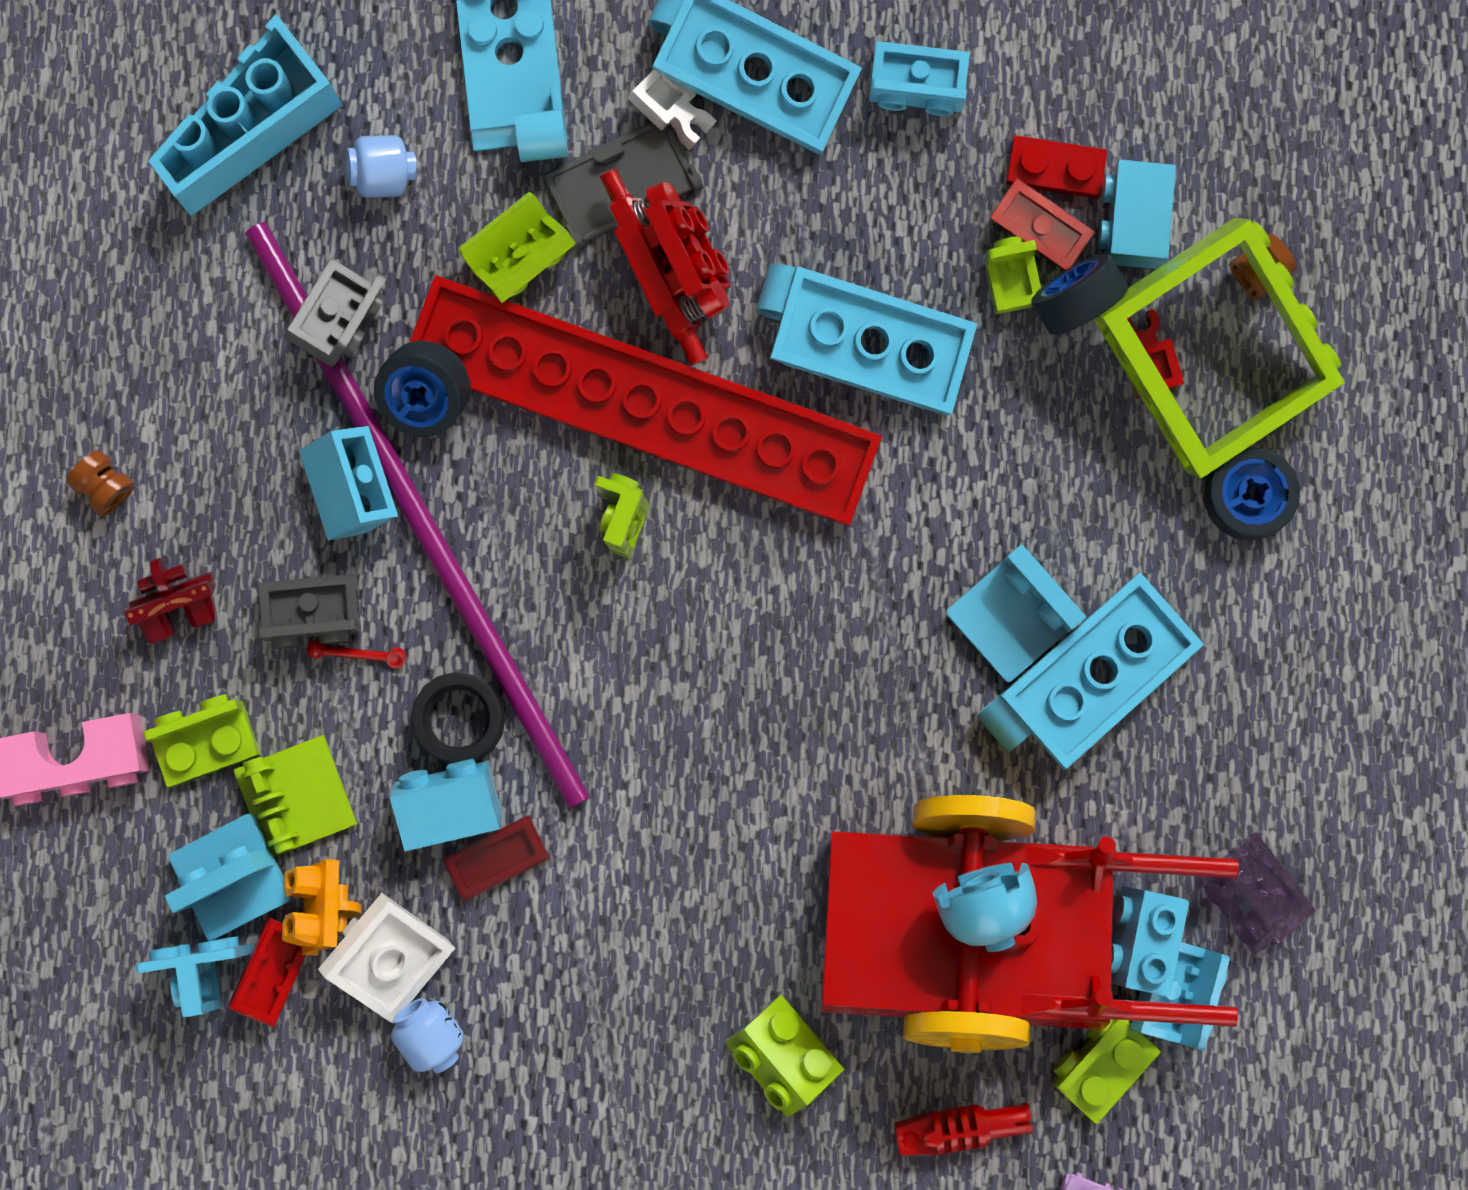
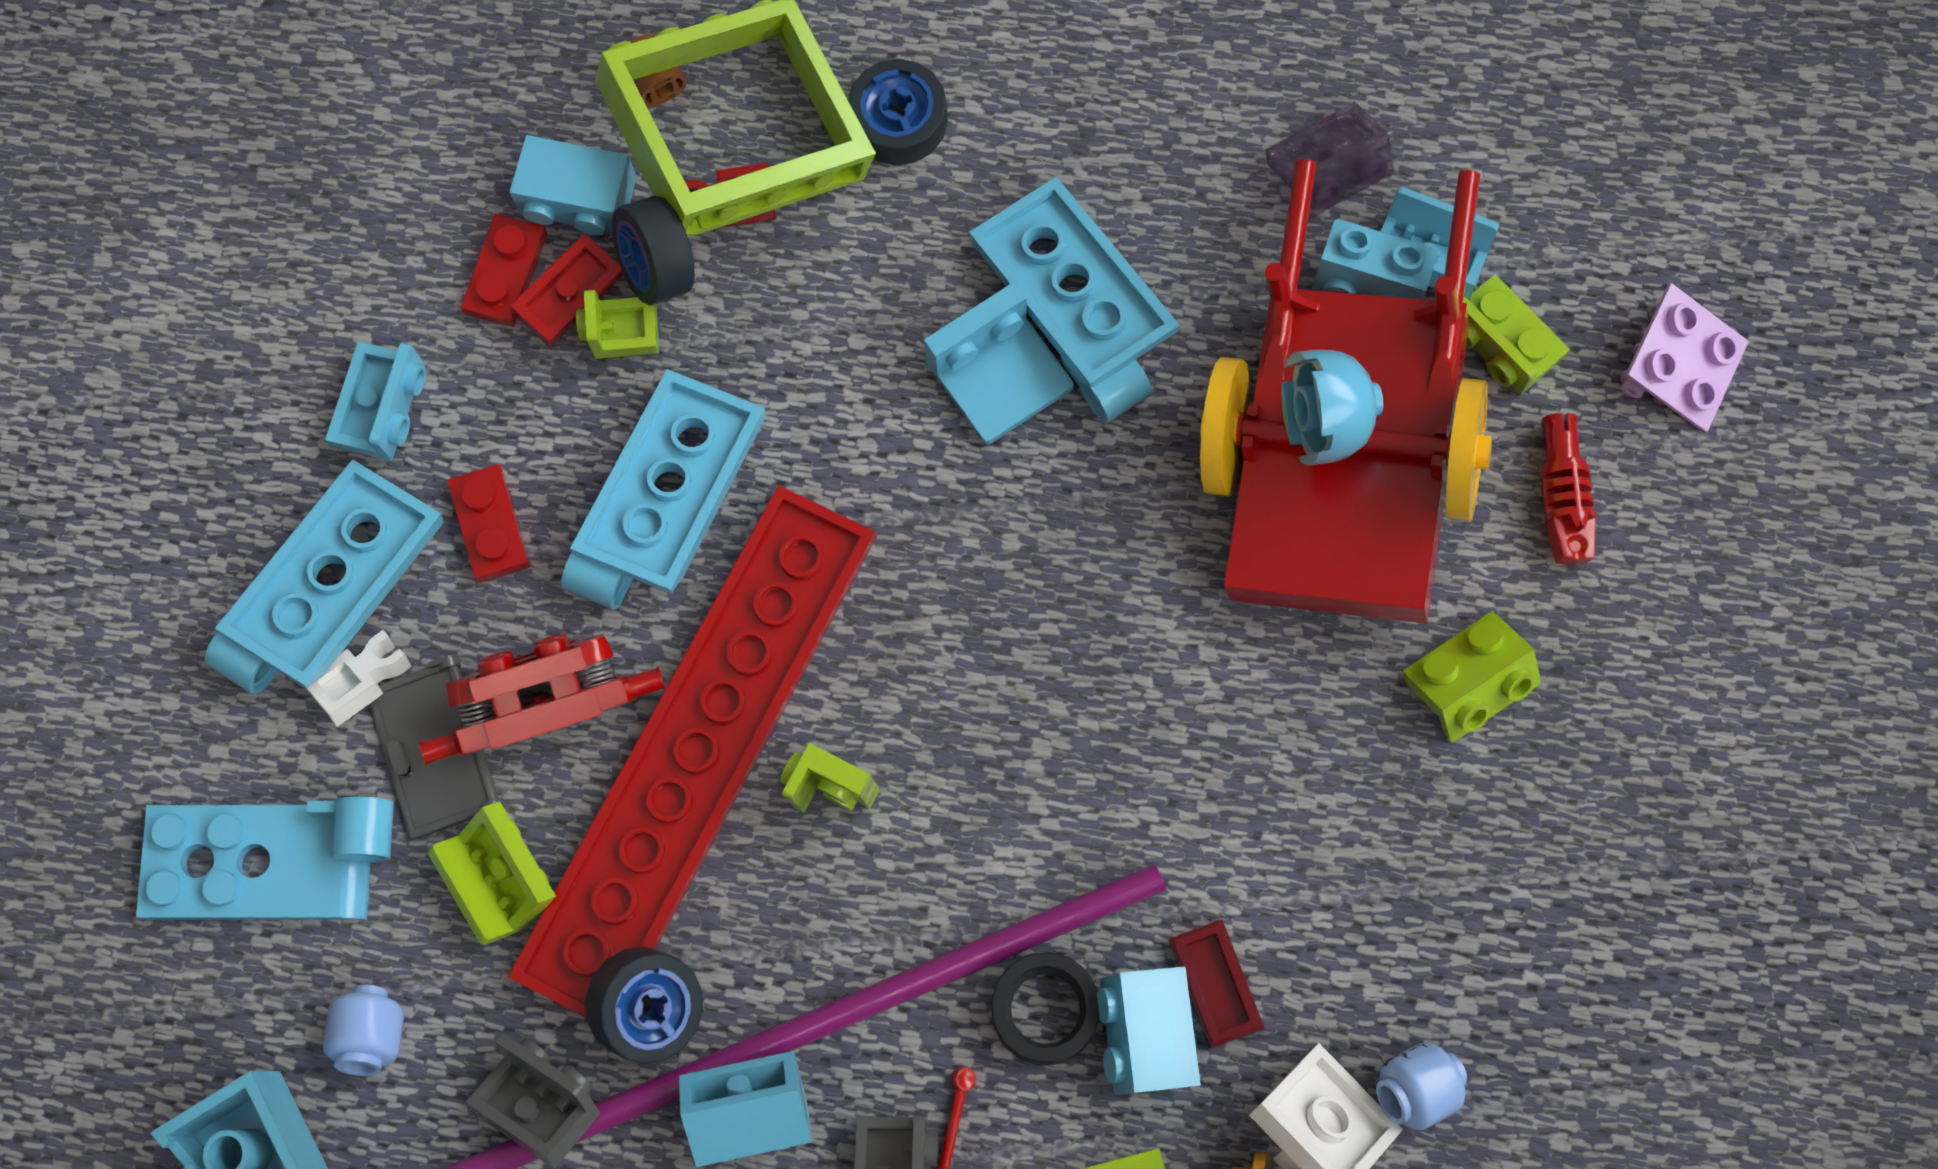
camera: 80 degrees left, 10 degrees down
(822, 193) = (488, 523): none -> red plate

